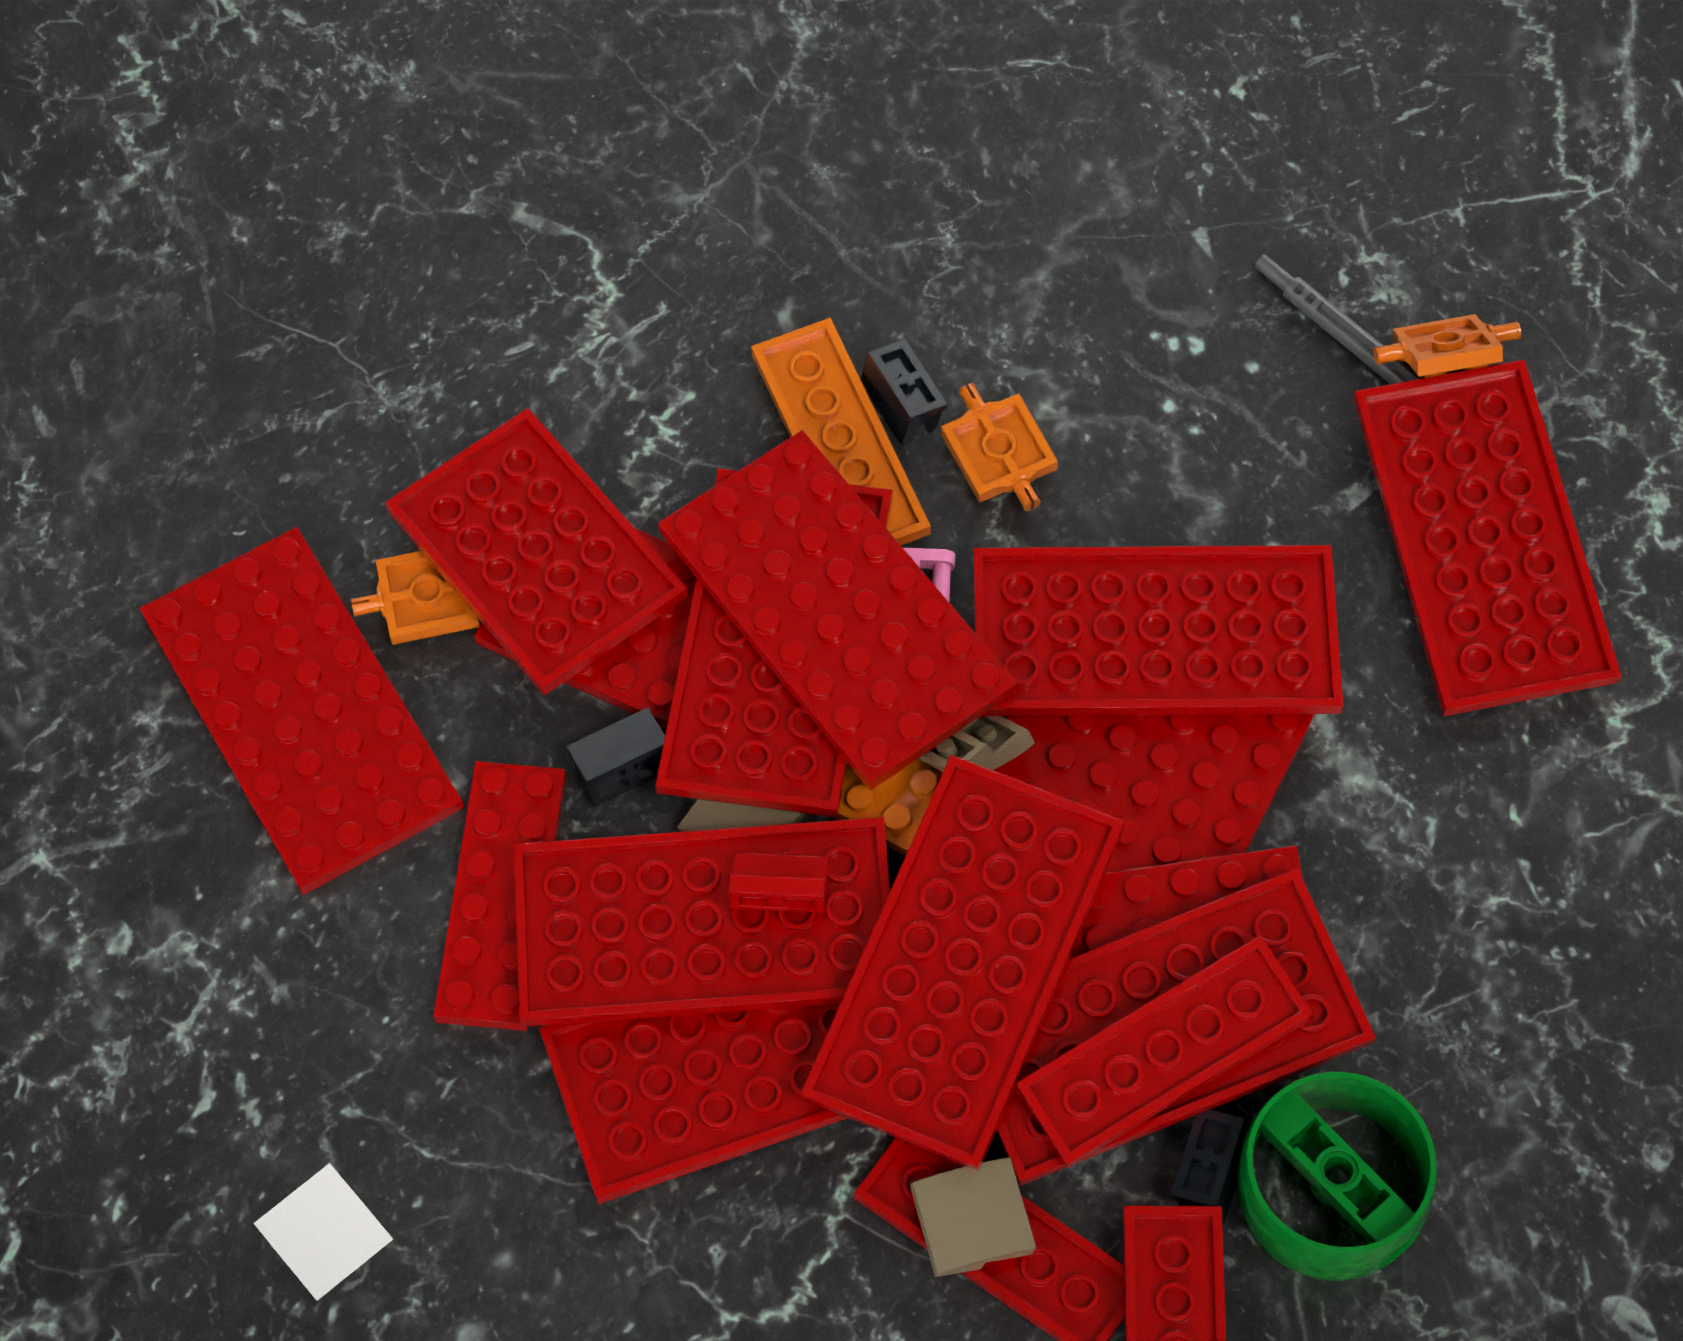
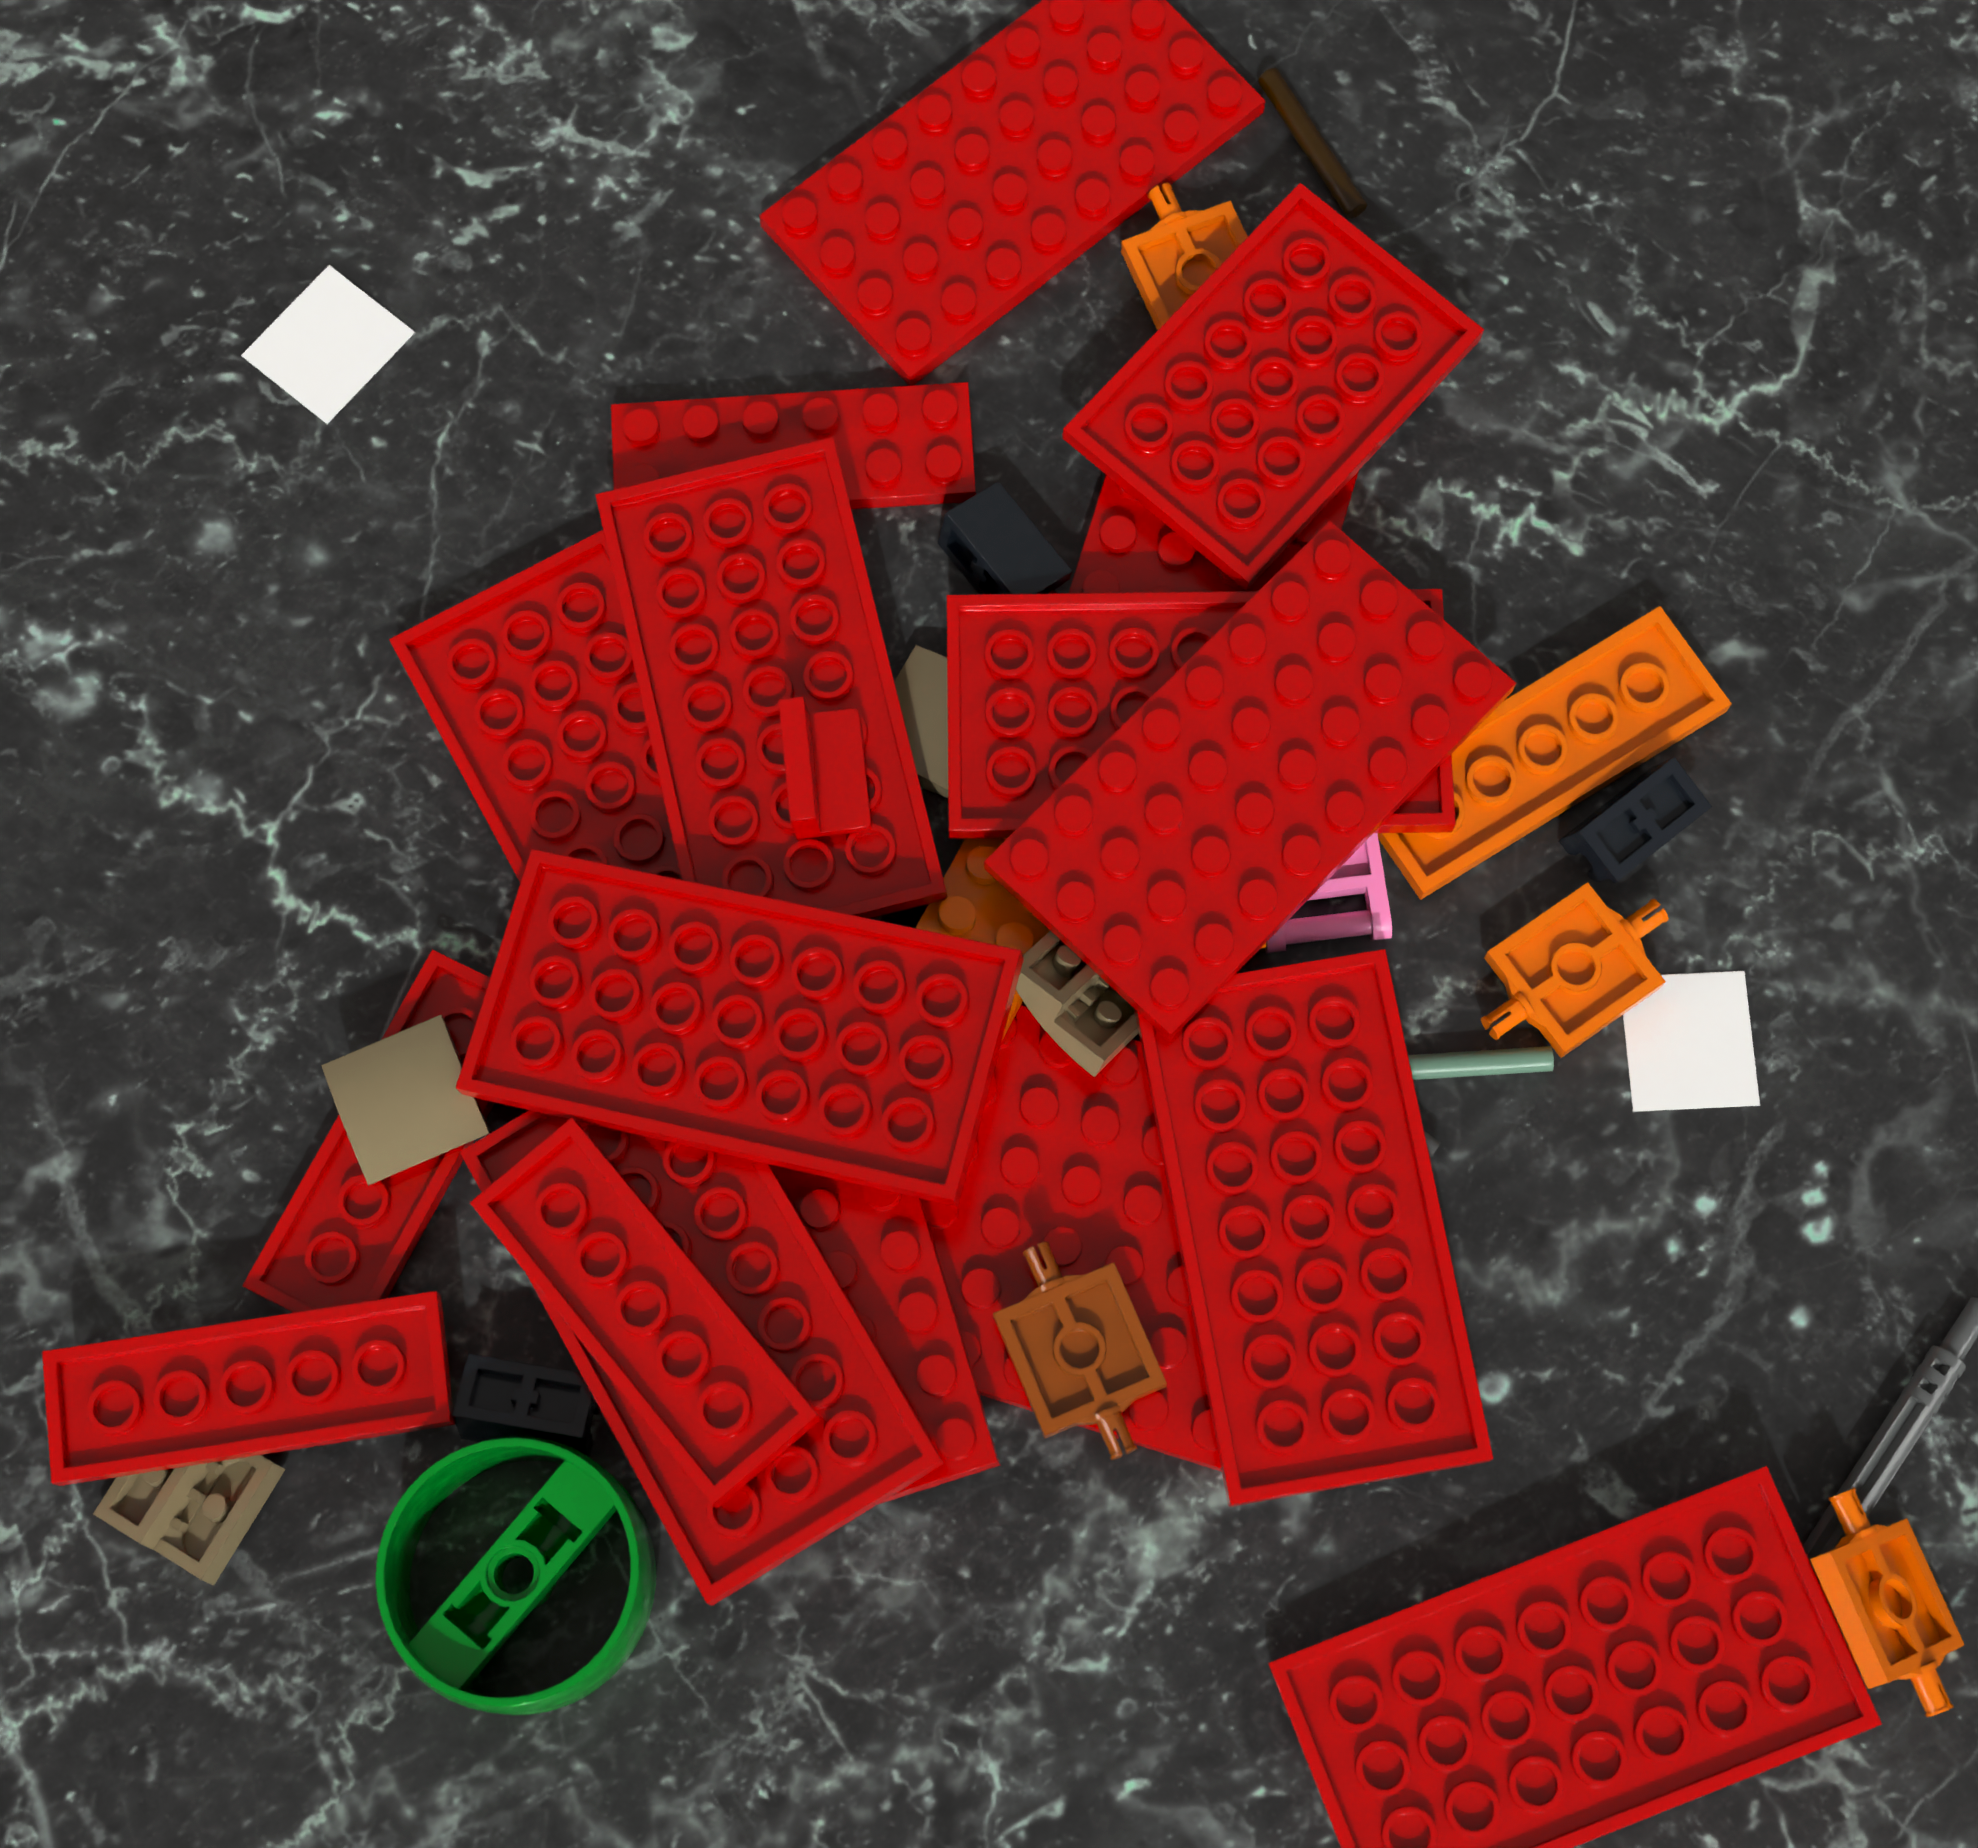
camera: 80 degrees right, 10 degrees up
(336, 504) = (1312, 143): none -> dark brown bar
(1053, 509) = (1481, 1062): none -> sand green bar
(1060, 392) = (1692, 1044): none -> white sticker
(1224, 786) = (1079, 1350): none -> dark orange plate

